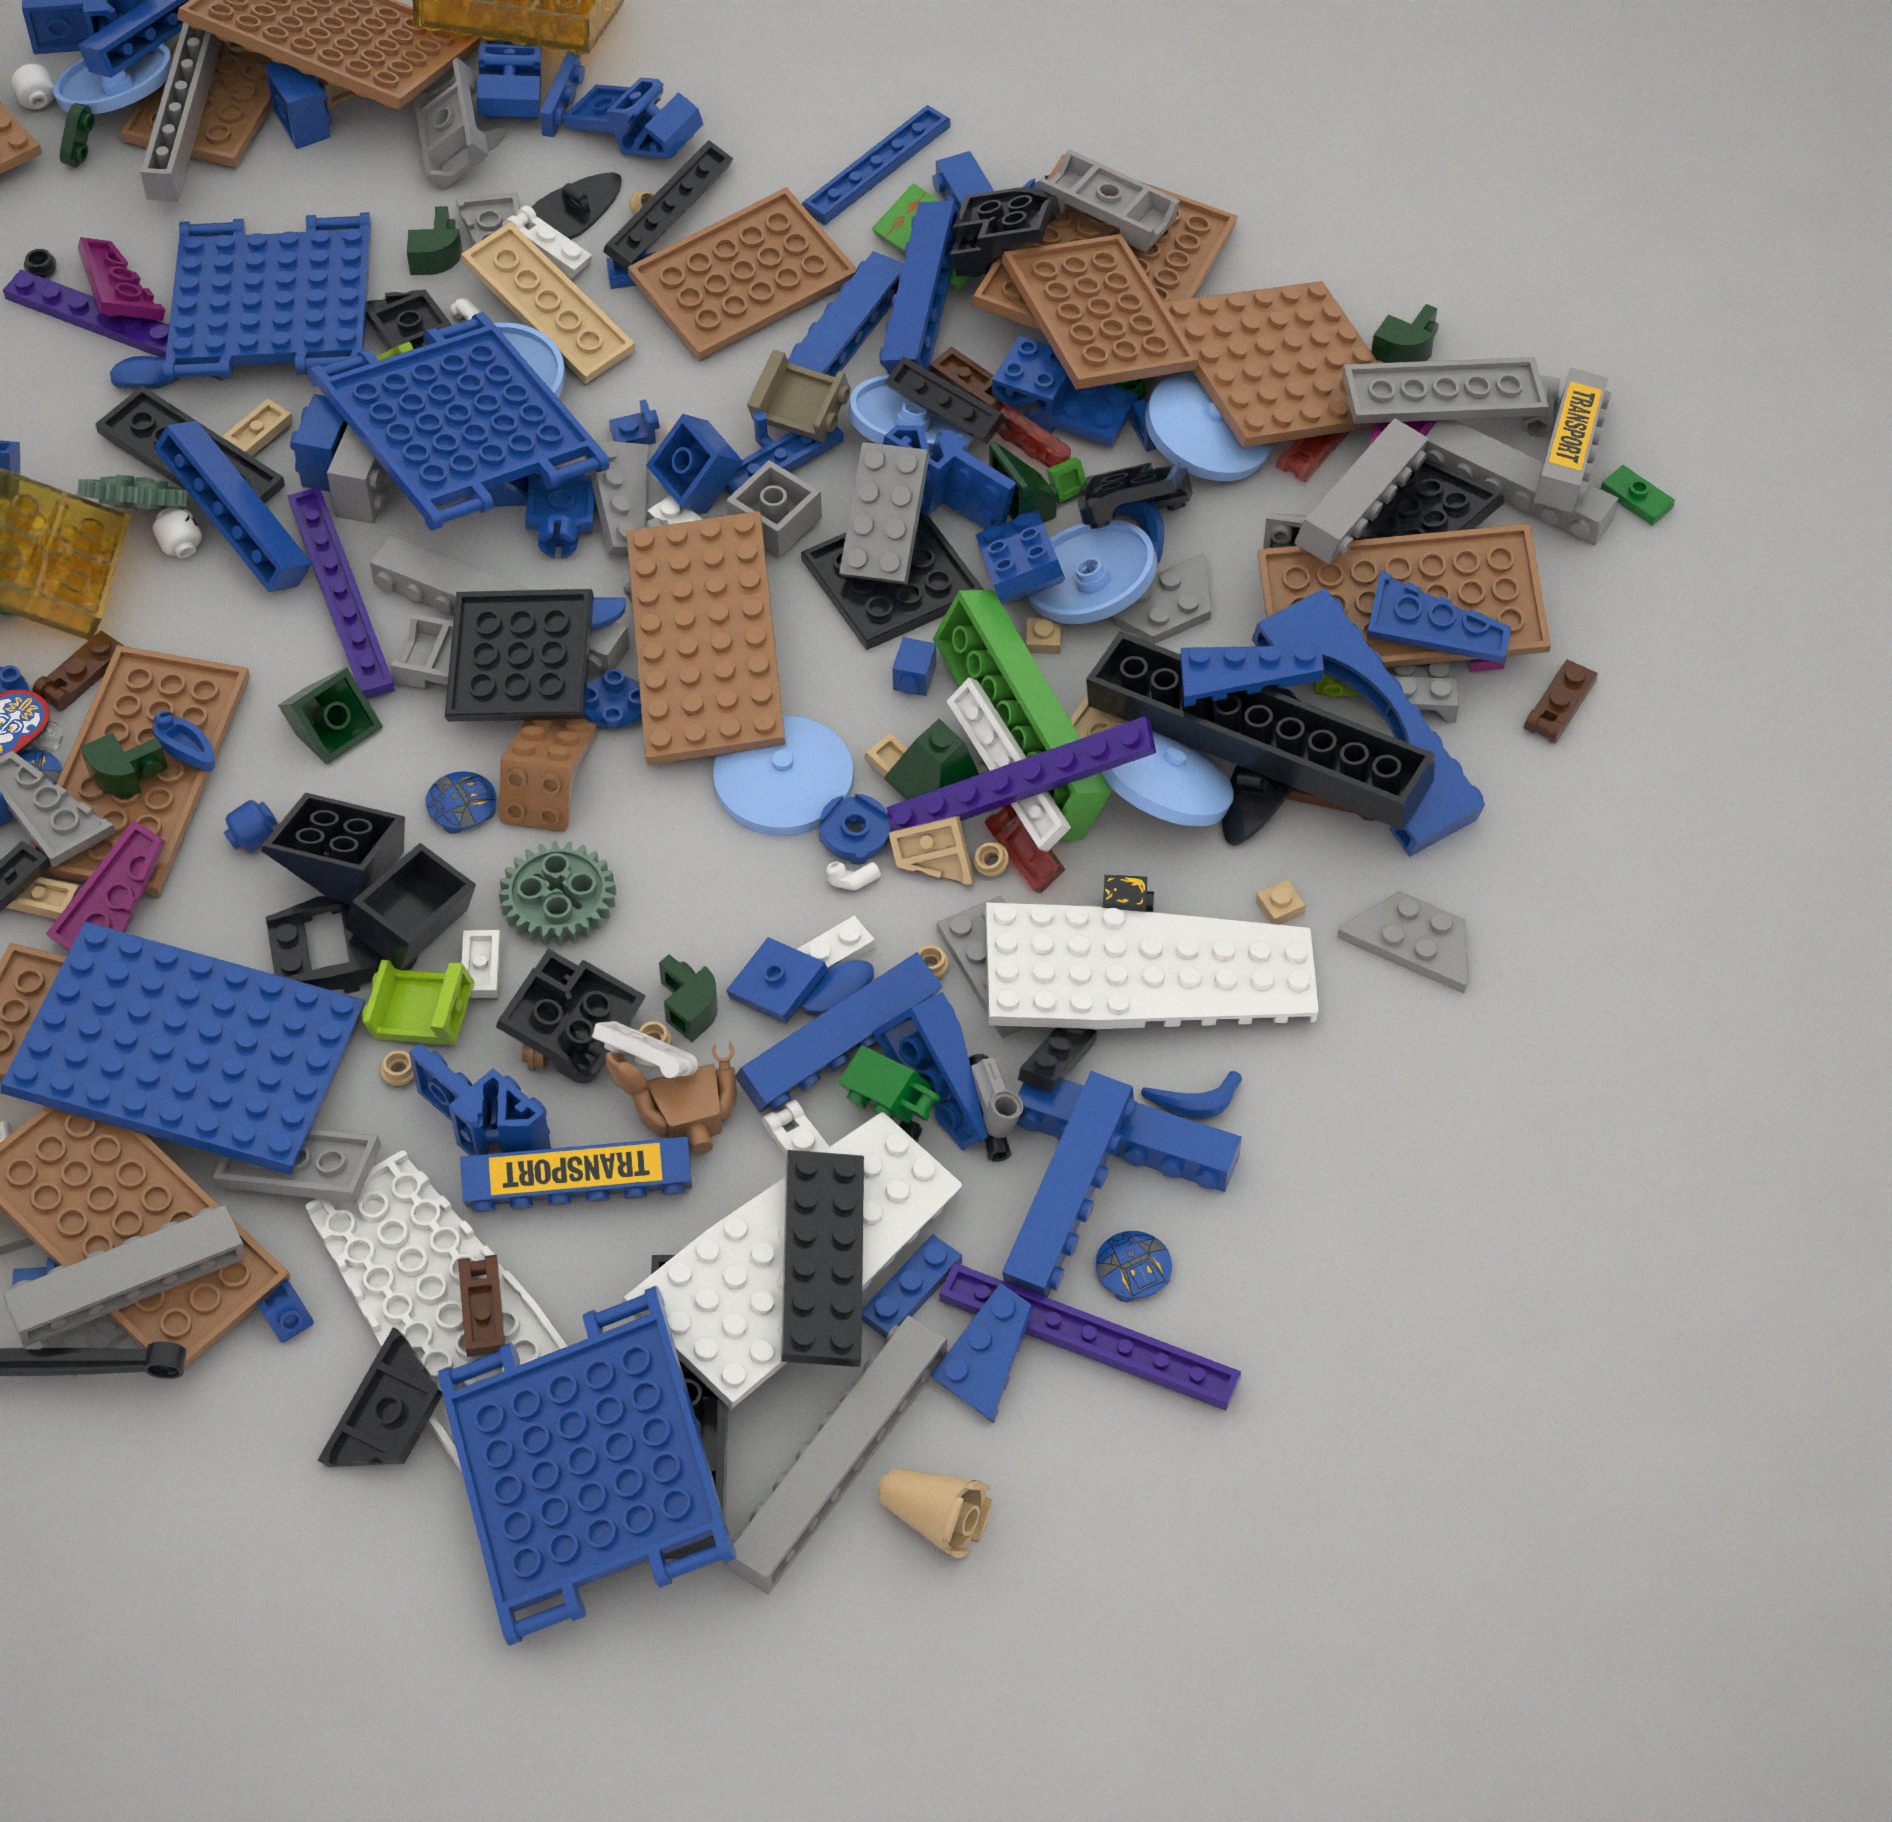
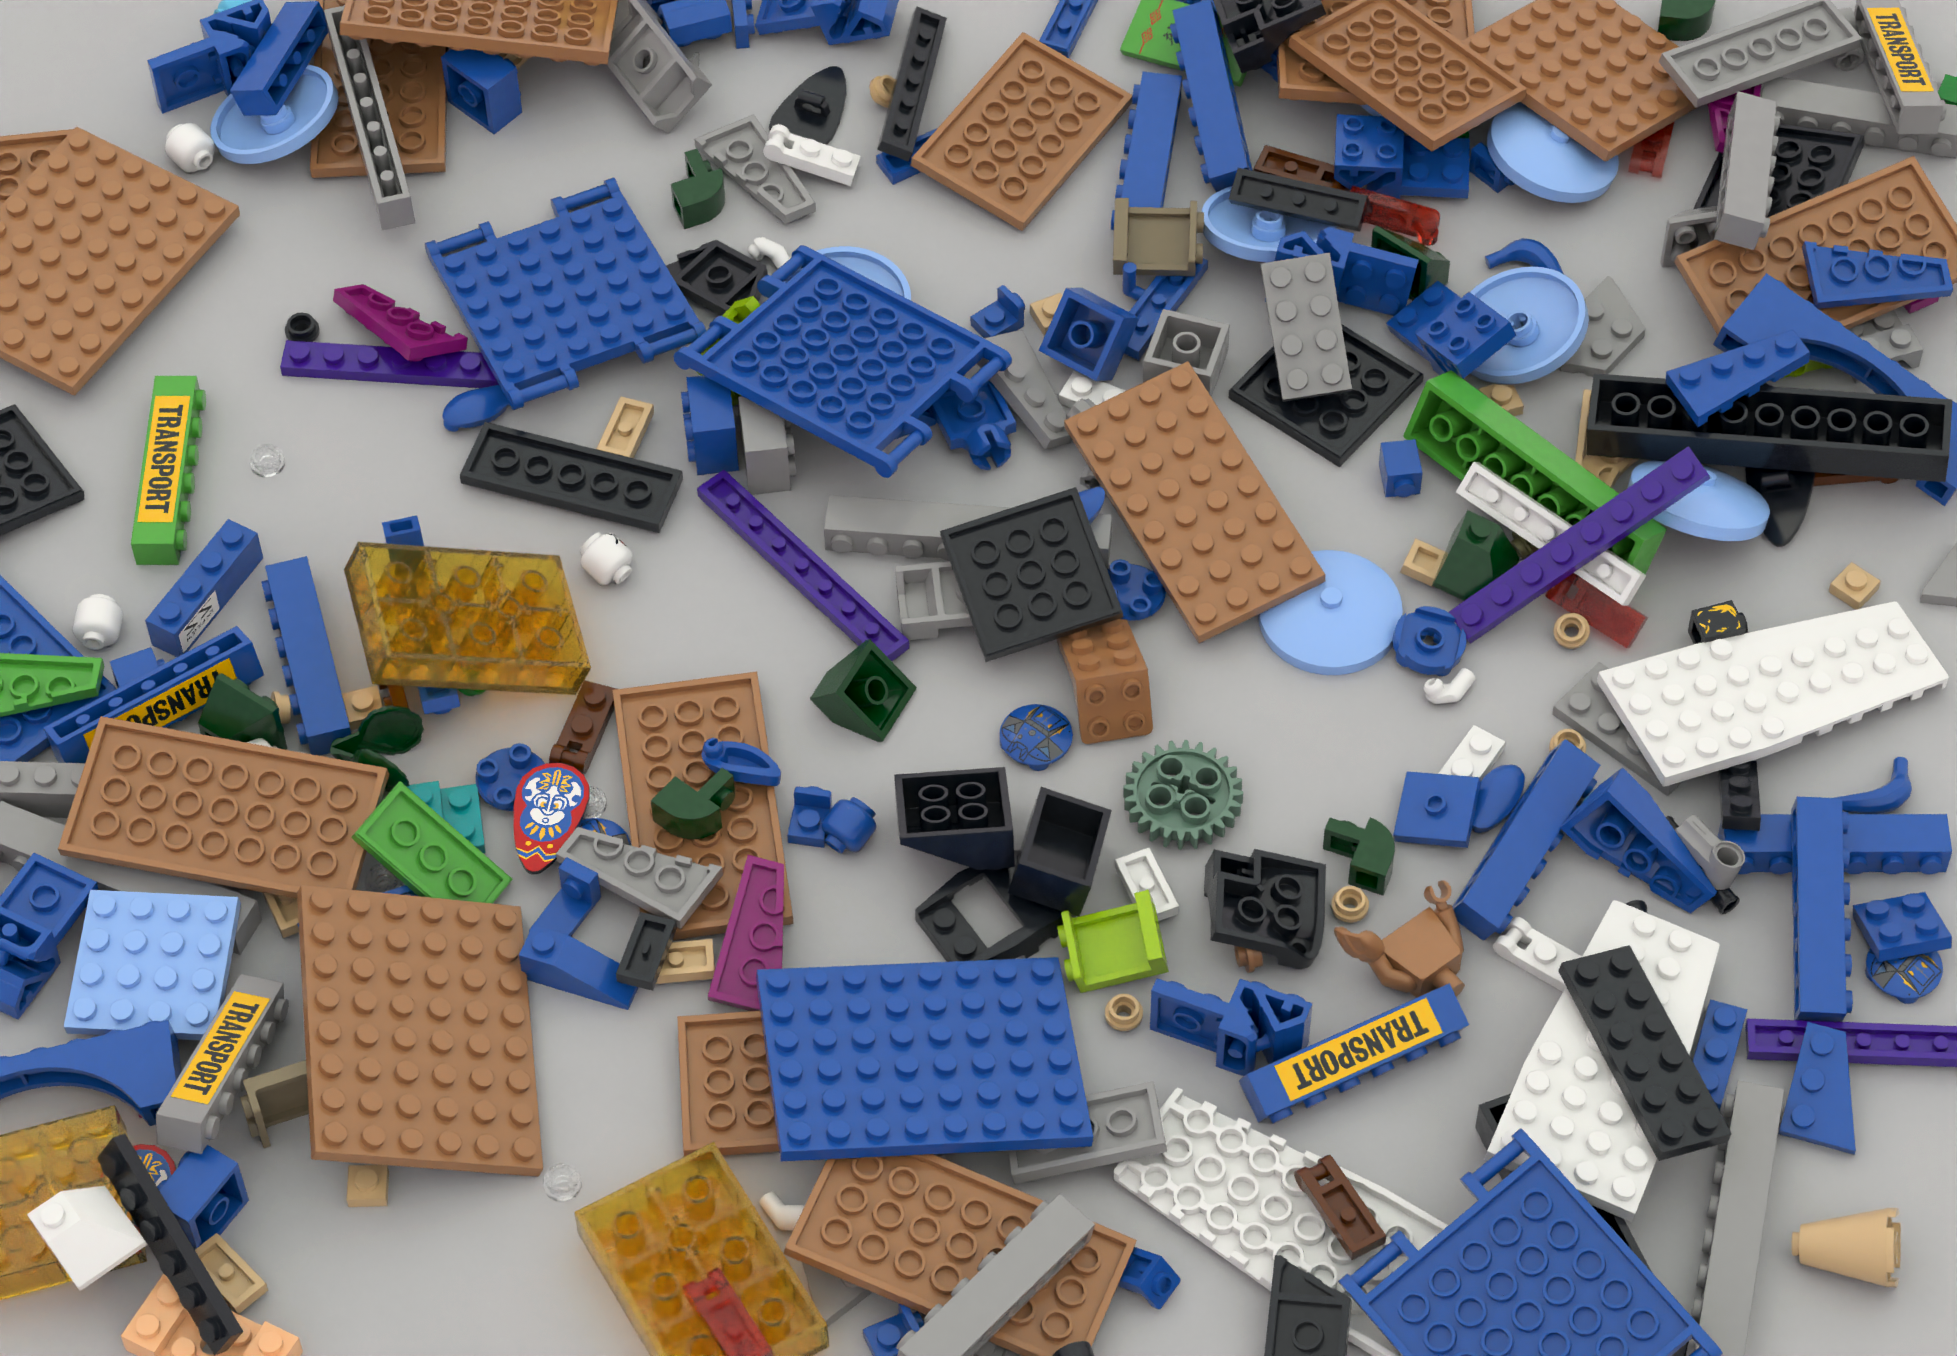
camera: 20 degrees left, 0 degrees up
(75, 135) = (270, 170): dark green plate -> none
(130, 492) = (541, 533): sand green gear -> none
(228, 798) = (809, 810): none -> blue bracket
(232, 506) = (659, 514): blue brick -> none
(548, 301) = (848, 214): tan plate -> none
(646, 1049) = (1366, 913): white plate -> none
(887, 1086) = (1604, 875): green brick -> none
(935, 849) = (1516, 638): tan wing -> none
(1067, 478) = (1446, 239): bright green plate -> none
(1104, 492) = (1508, 236): black slope -> none
(1147, 1227) = (1902, 926): none -> blue plate

